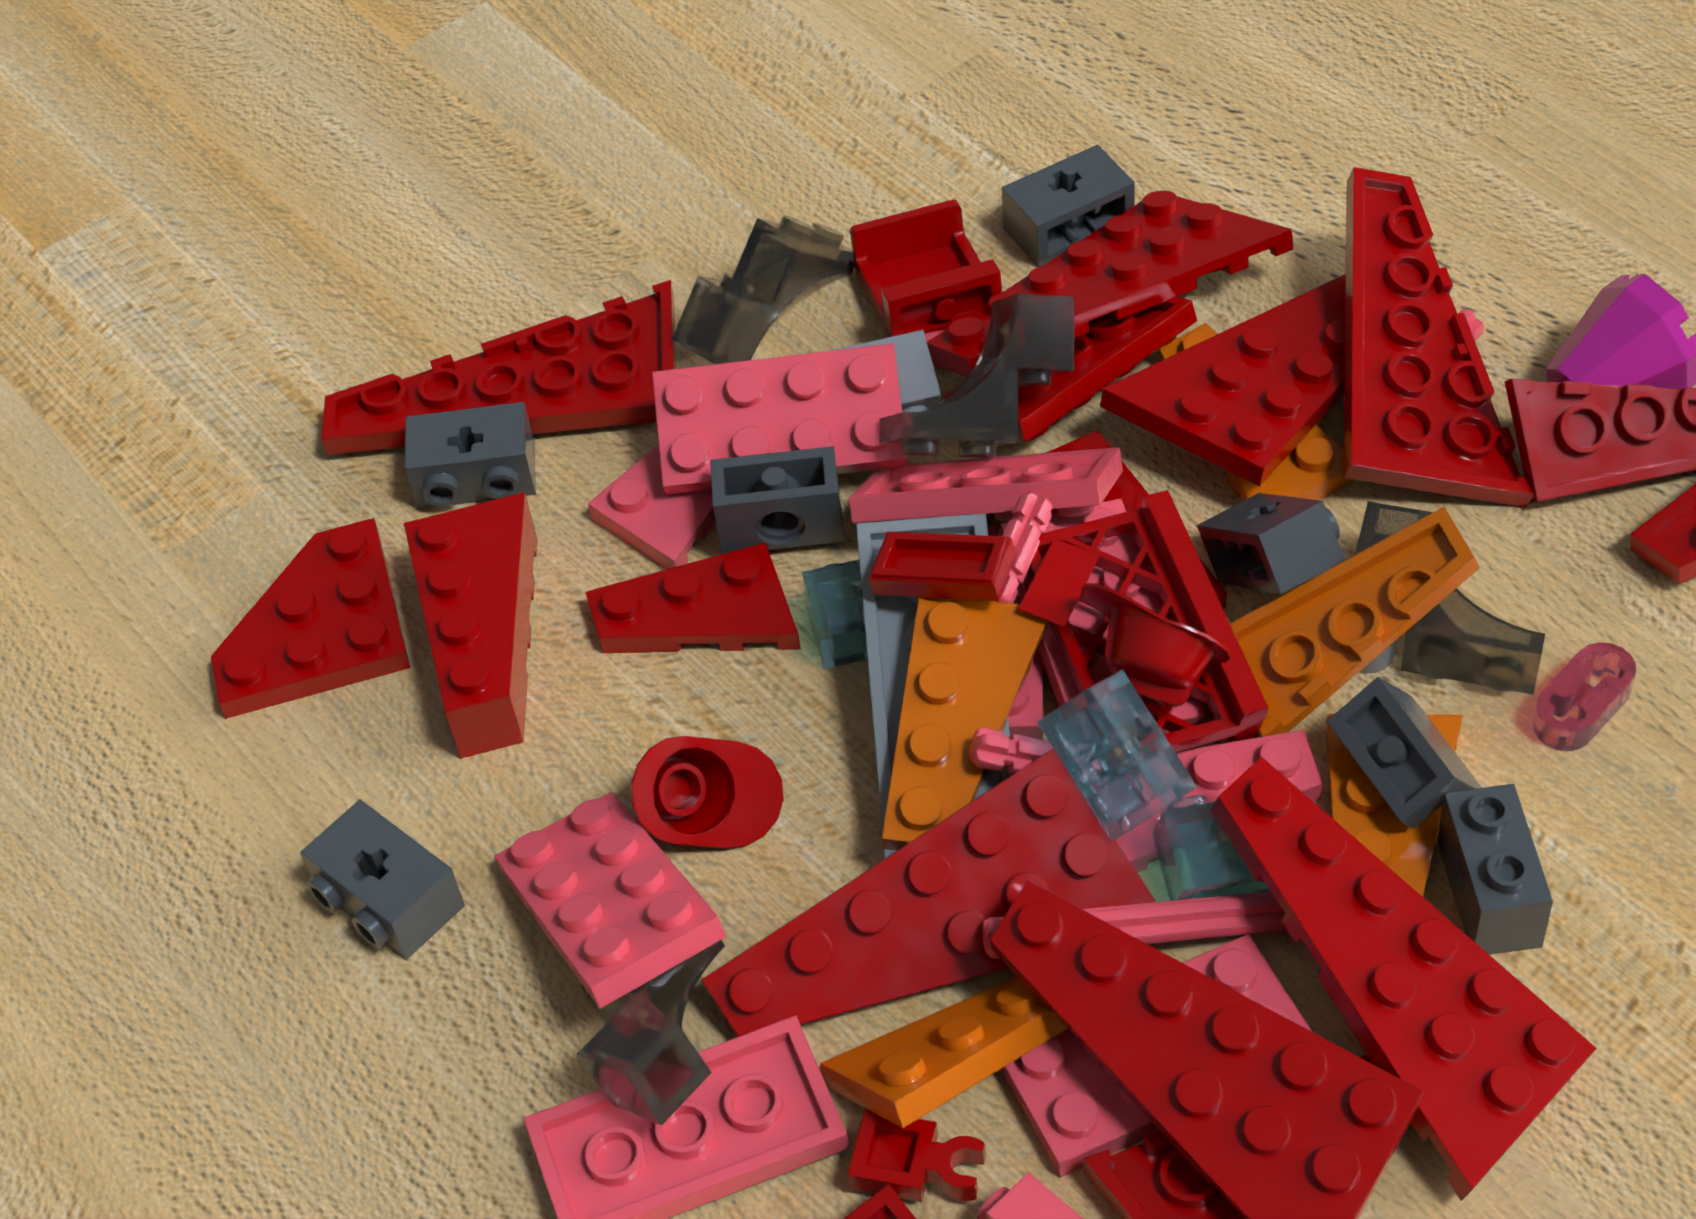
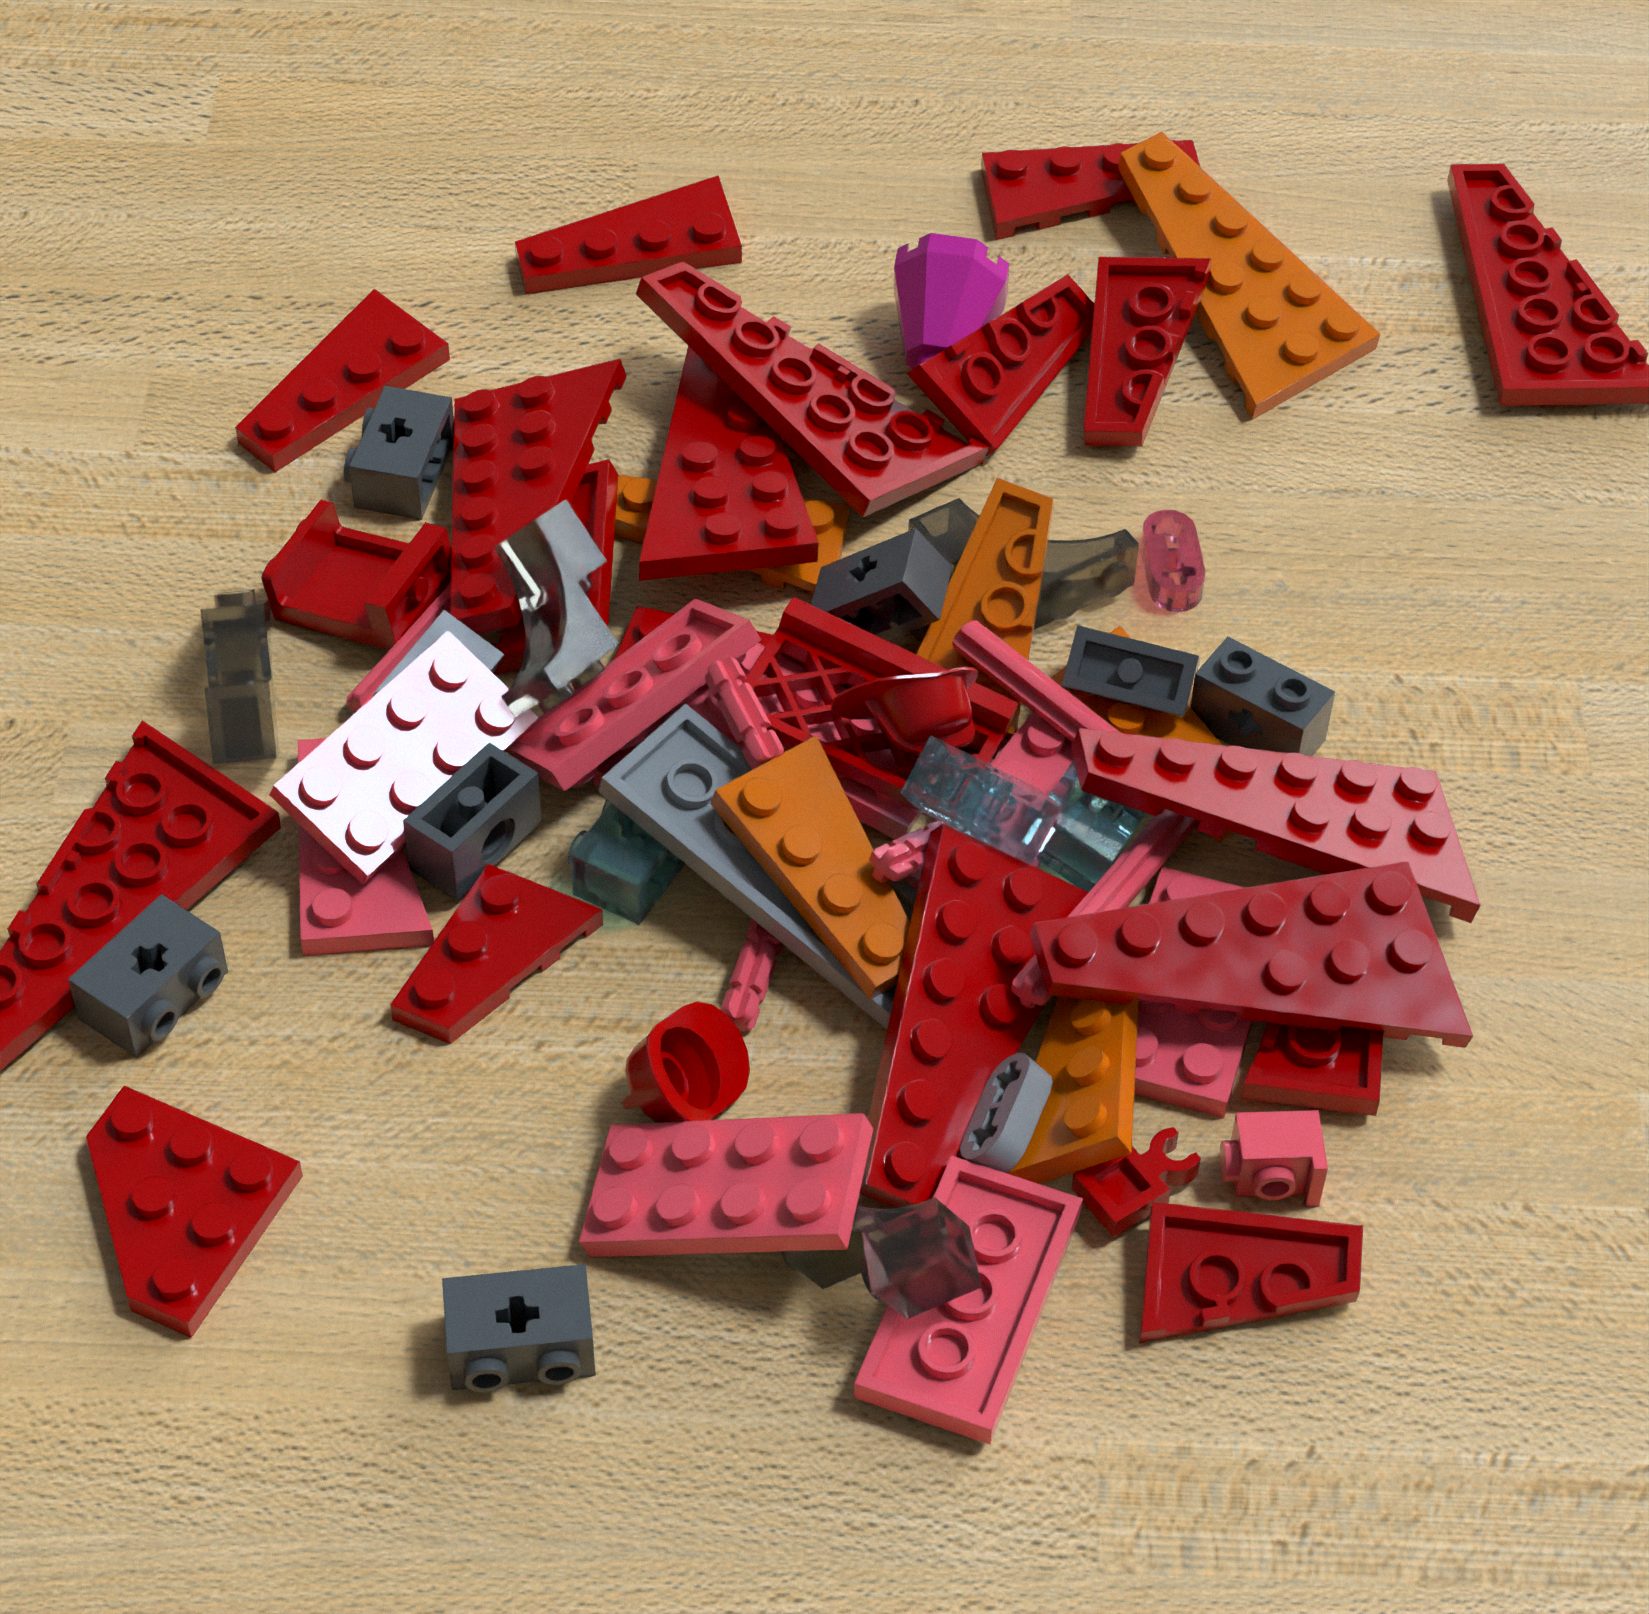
camera: 55 degrees left, 0 degrees up
(476, 607) = (333, 1087): red wedge -> none
(832, 770) = (751, 977): none -> coral axle
(874, 1021) = (1007, 1113): none -> light grey beam
(942, 566) = (716, 757): red tile -> none
(1058, 582) = (796, 714): red sticker -> none
(1132, 125) = (341, 380): none -> red wing
(1304, 710) = (1025, 681): none -> coral axle
(1459, 158) = (634, 240): none -> red wing

